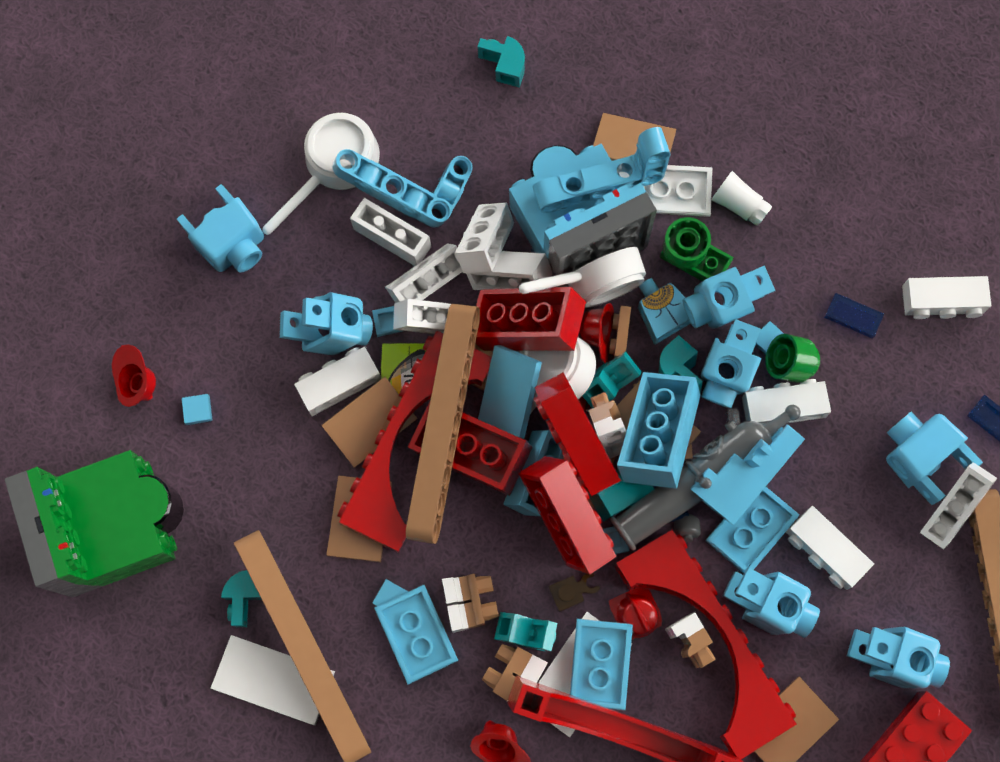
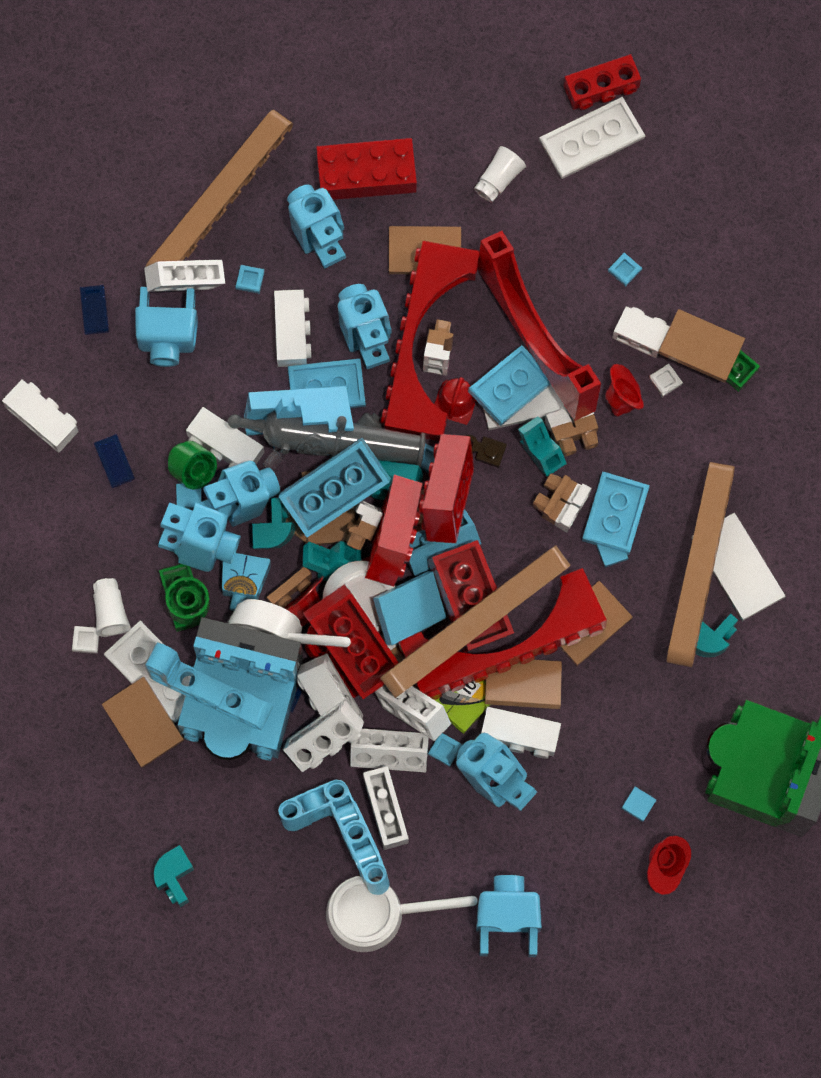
camera: 145 degrees left, 0 degrees up
(737, 163) = (85, 640): none -> white tile
(904, 563) = (250, 279): none -> medium azure tile

